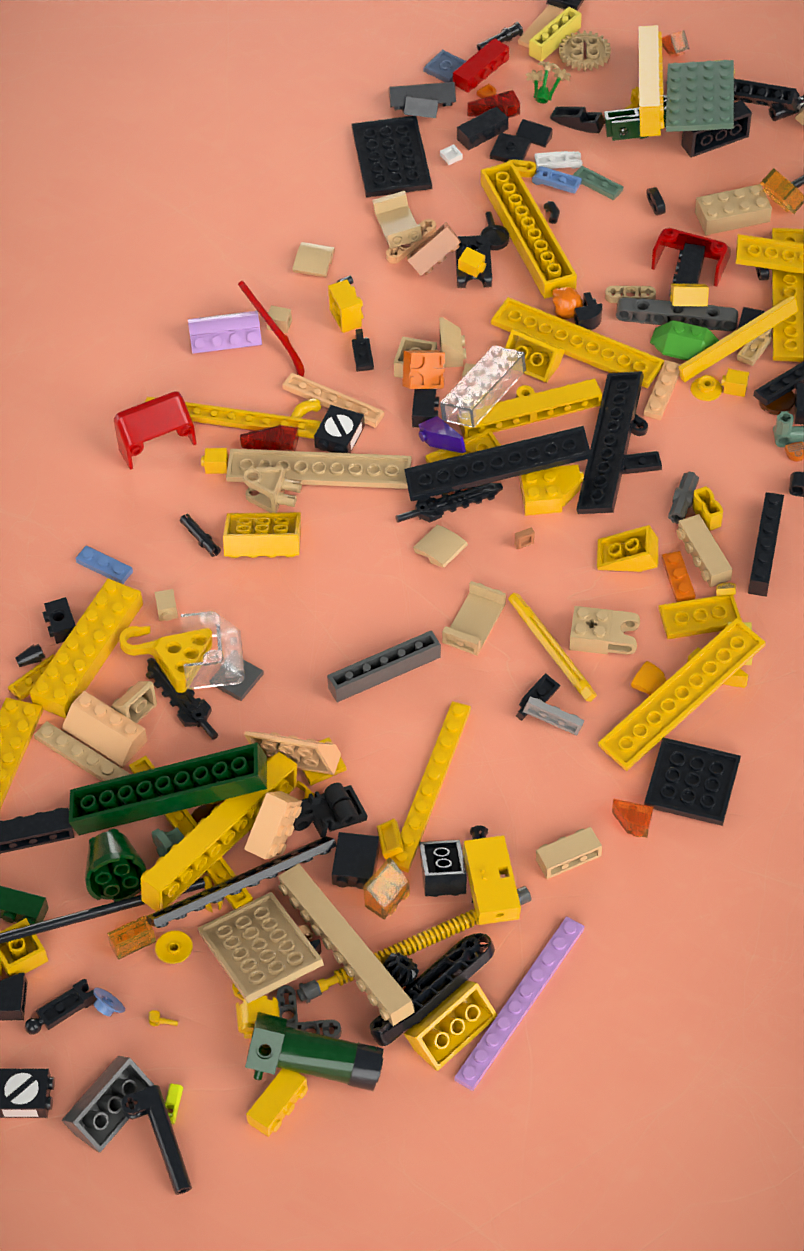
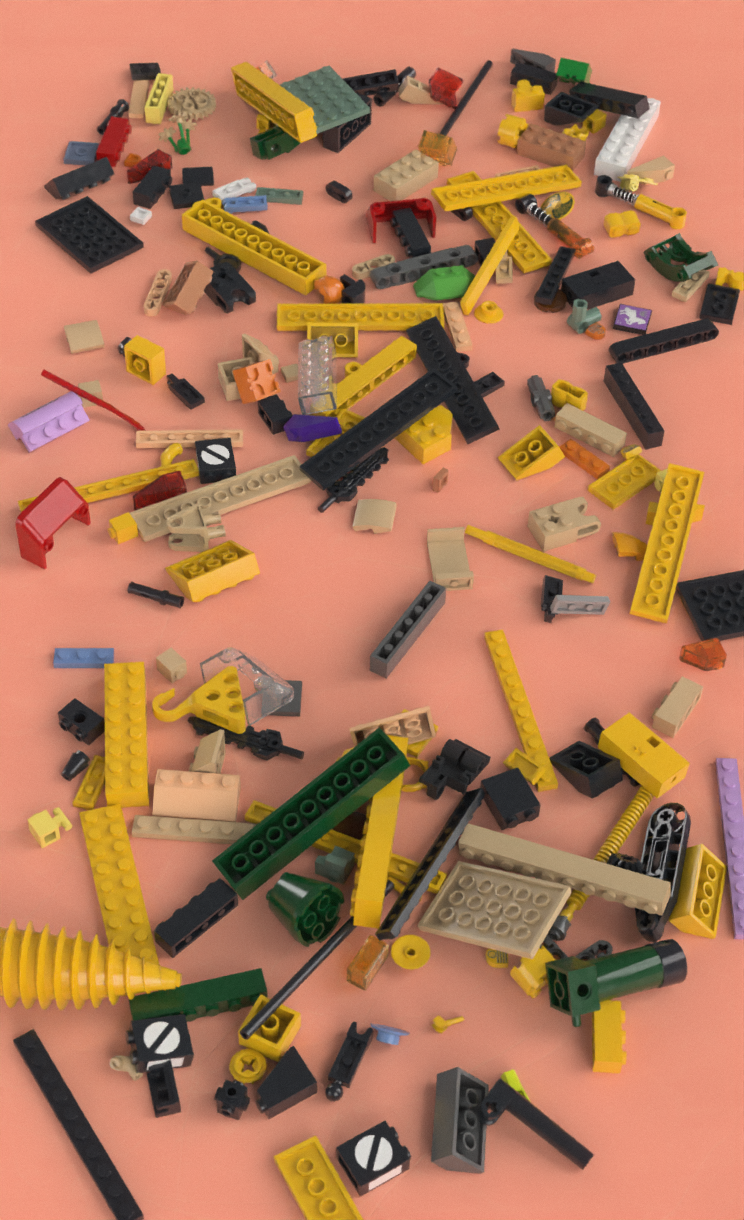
camera: 35 degrees left, 5 degrees down
(273, 825) = (427, 799): light nougat brick -> none
(386, 889) = (559, 809): clear yellow slope -> none
(396, 220) = (134, 281): tan panel -> none
(420, 107) = (88, 186): hinge -> none
(471, 262) = (233, 284): yellow brick -> none
(578, 119) = (226, 154): black slope -> none
(689, 294) = (428, 245): yellow hinge -> none
(735, 382) = (511, 298): yellow brick -> none

